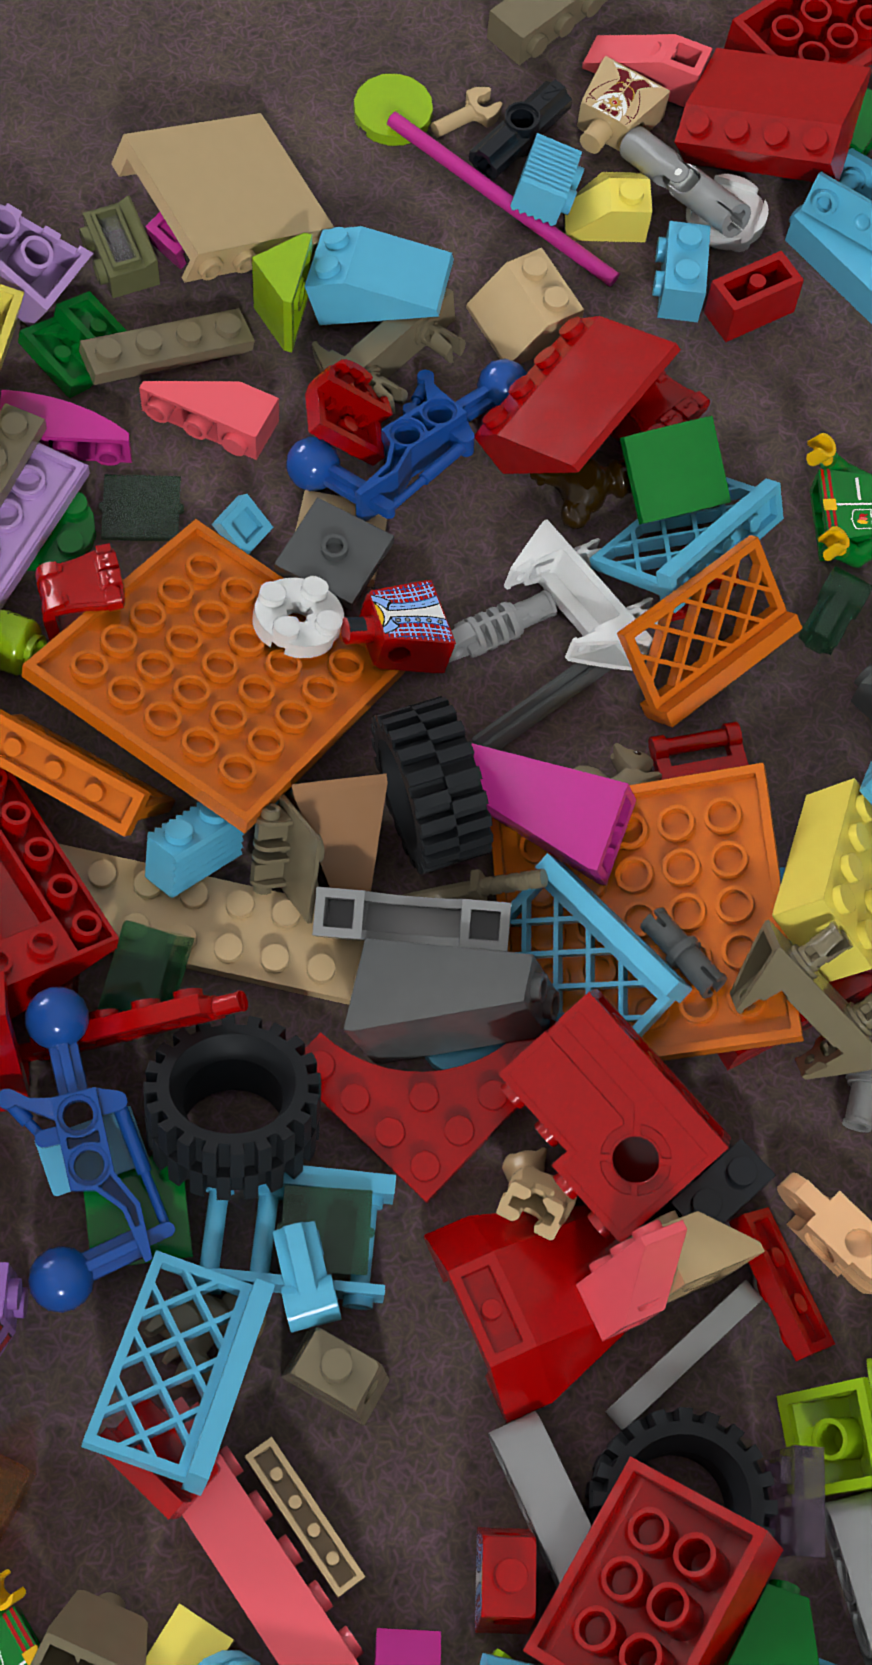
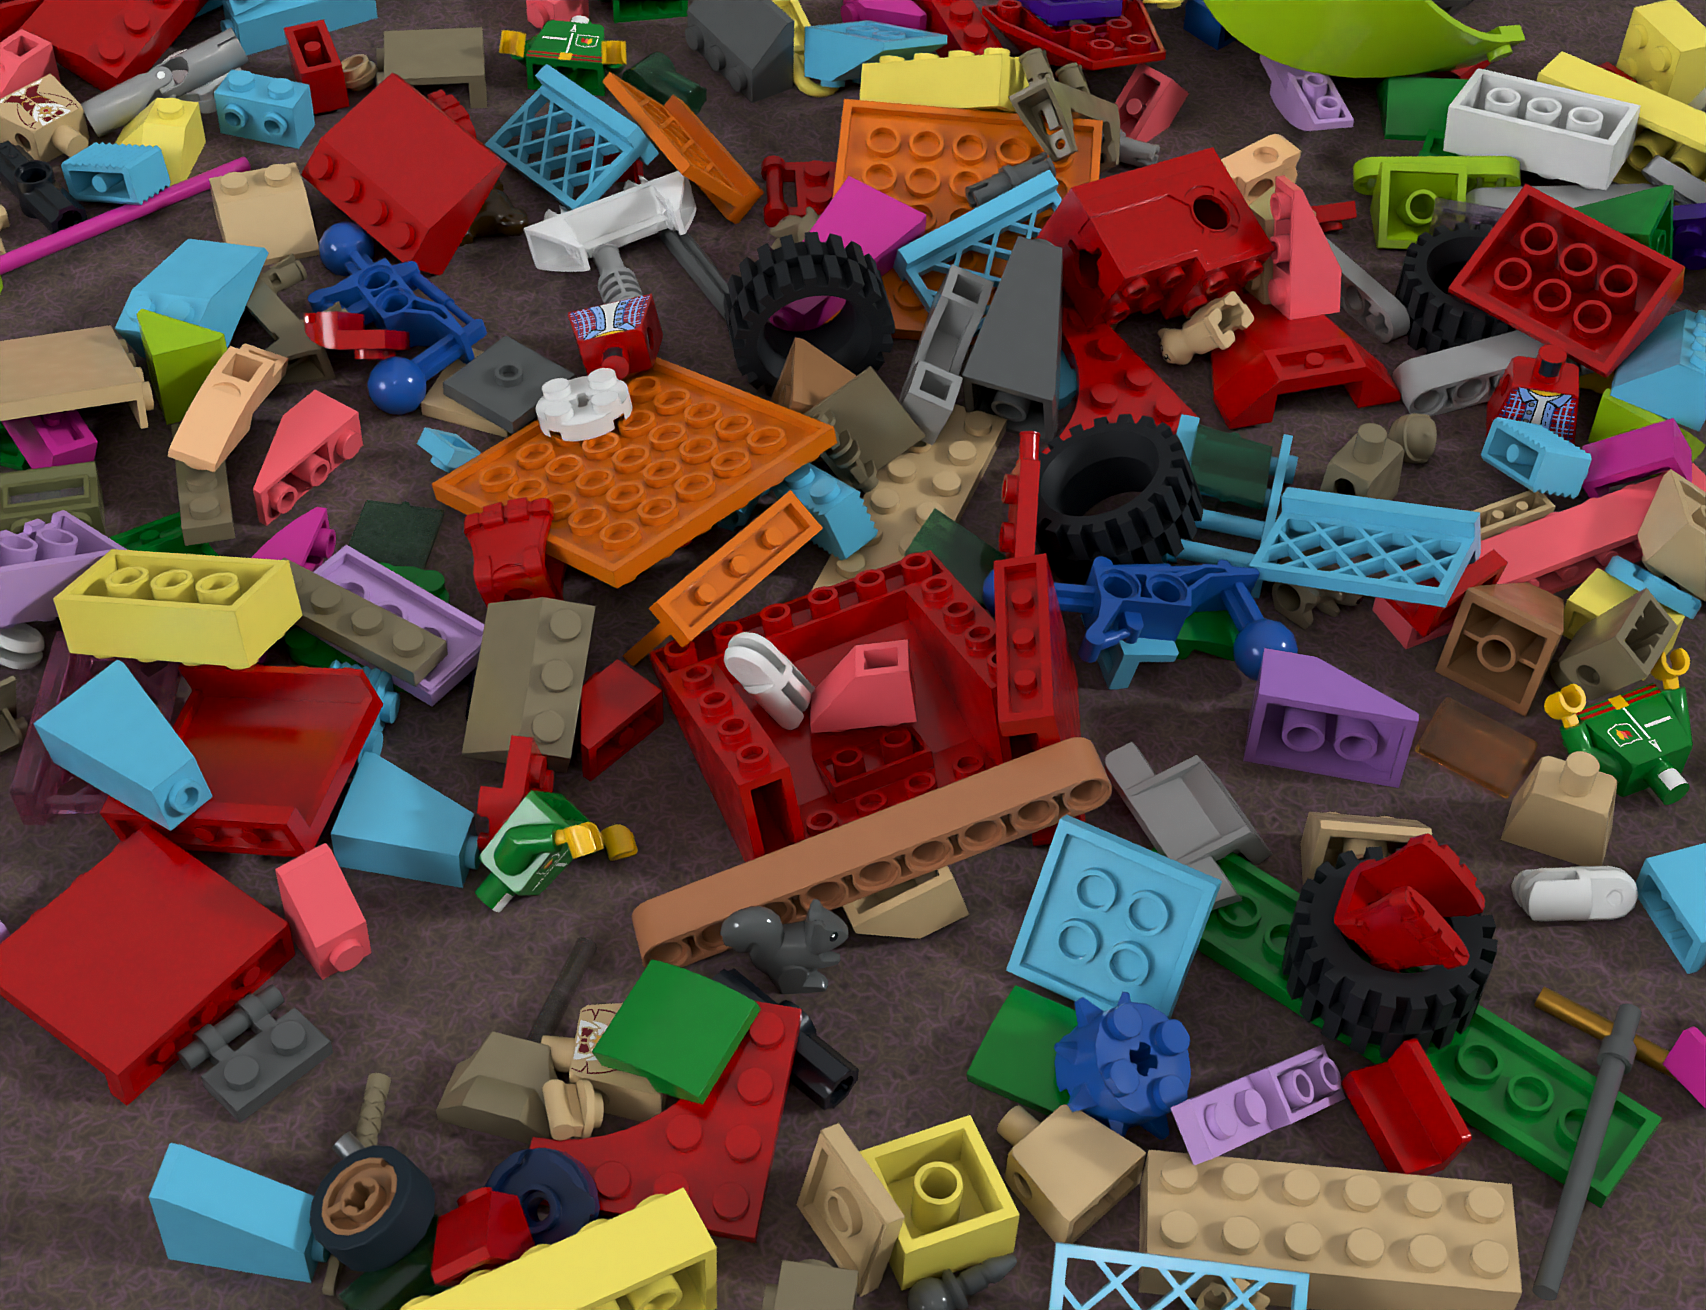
camera: 75 degrees left, 20 degrees down
(133, 1546) = (1504, 642): none -> medium nougat slope
(234, 331) = (225, 406): none -> light nougat slope
(307, 1288) = (1296, 465): medium azure piece -> none
(401, 1574) = (1536, 457): none -> medium azure brick
(433, 1435) = (1416, 435): none -> dark tan piece
(480, 886) = (912, 317): dark tan sword -> none
(675, 469) = (512, 121): green slope -> none
(773, 335) = (358, 72): none -> tan plate
(796, 396) = (436, 58): none -> dark tan panel

